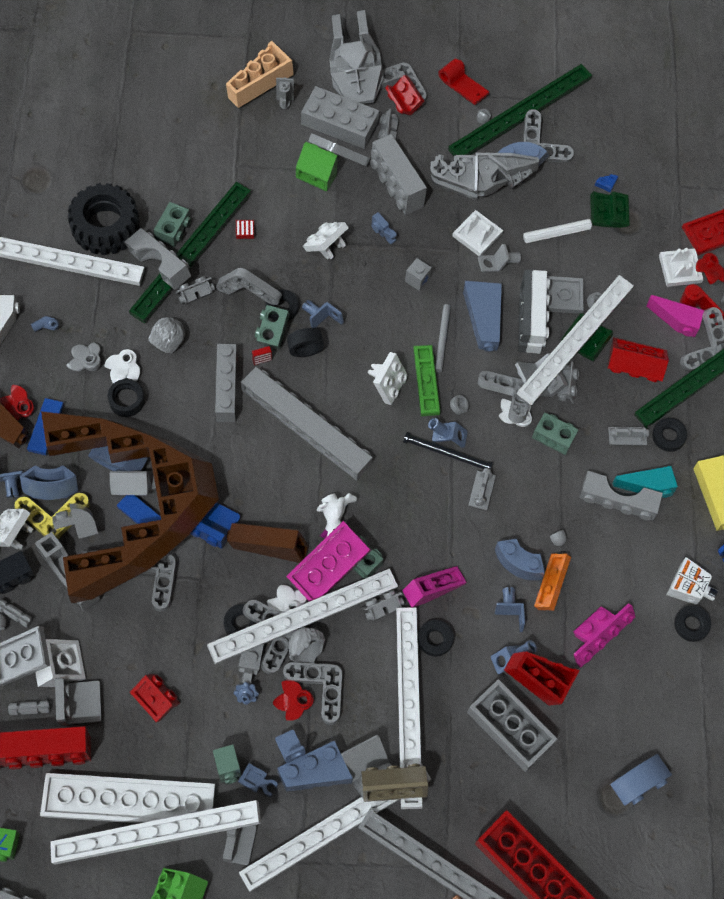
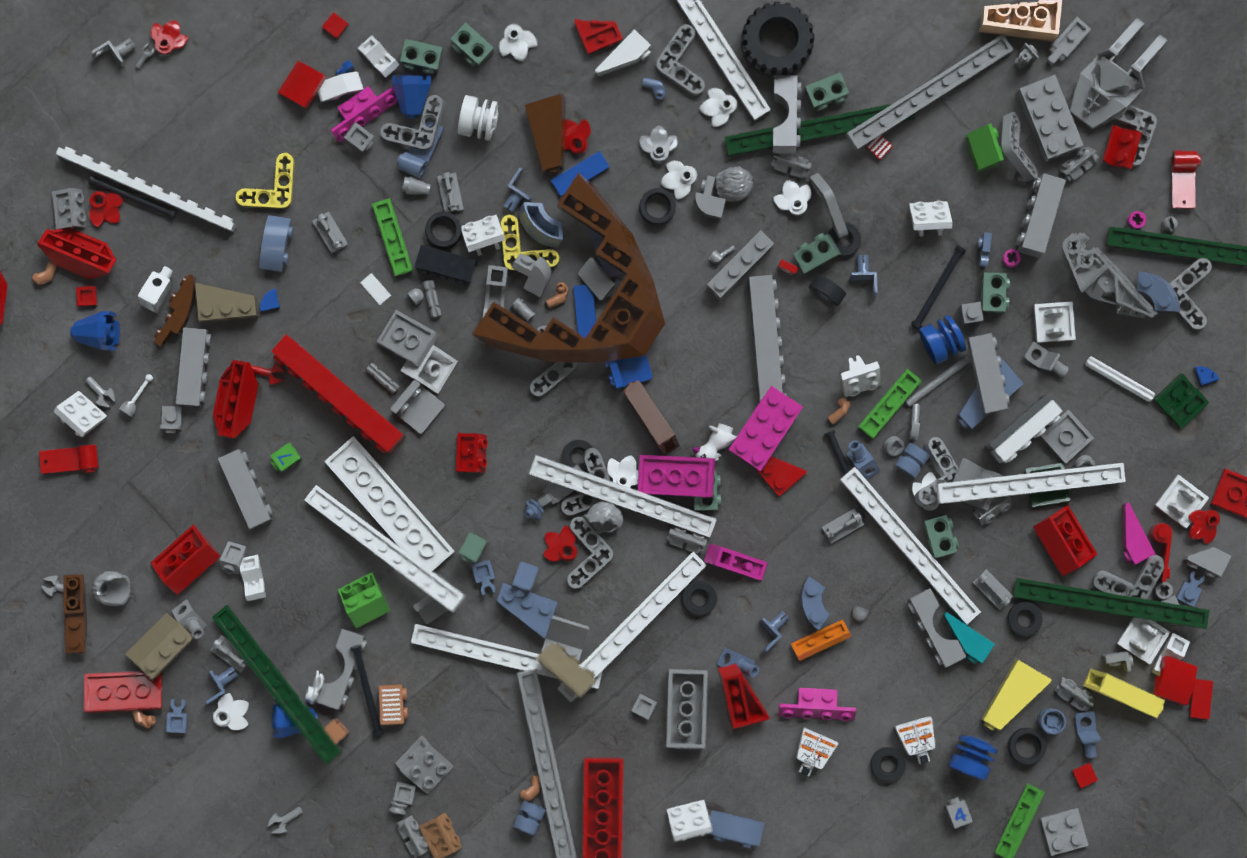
camera: 45 degrees right, 20 degrees up
(46, 298) = (674, 66): none -> light grey beam
(104, 299) = (715, 106): none -> white plate
(113, 522) = (560, 295): none -> nougat arm
(160, 364) = (709, 205): none -> light grey brick
(204, 394) = (715, 257): none -> light grey hand
(218, 308) = (791, 195): none -> white plate
(242, 167) = (929, 92): none -> light grey plate
(302, 66) = (1068, 40): none -> light grey hinge
(359, 470) = (765, 428): none -> dark pink plate
(389, 314) = (938, 287): none -> black bar
(399, 415) = (841, 412): none -> nougat arm
(400, 497) = (780, 474): none -> red wing
(406, 226) = (1005, 259): none -> dark pink bush
(417, 250) = (989, 292): none -> sand green brick
(417, 304) = (945, 338): none -> blue wheel
(460, 377) = (915, 425): none -> light grey bar
(461, 126) = (1132, 224): none -> dark pink bush
(471, 295) = (987, 373): none -> light grey brick
(478, 758) = (644, 706): none -> light grey plate
(482, 401) = (912, 460): none -> sand blue wheel
(541, 457) = (910, 545): none -> white plate
(603, 808) = (689, 820): none -> white plate
(632, 664) = (814, 750): none -> torso

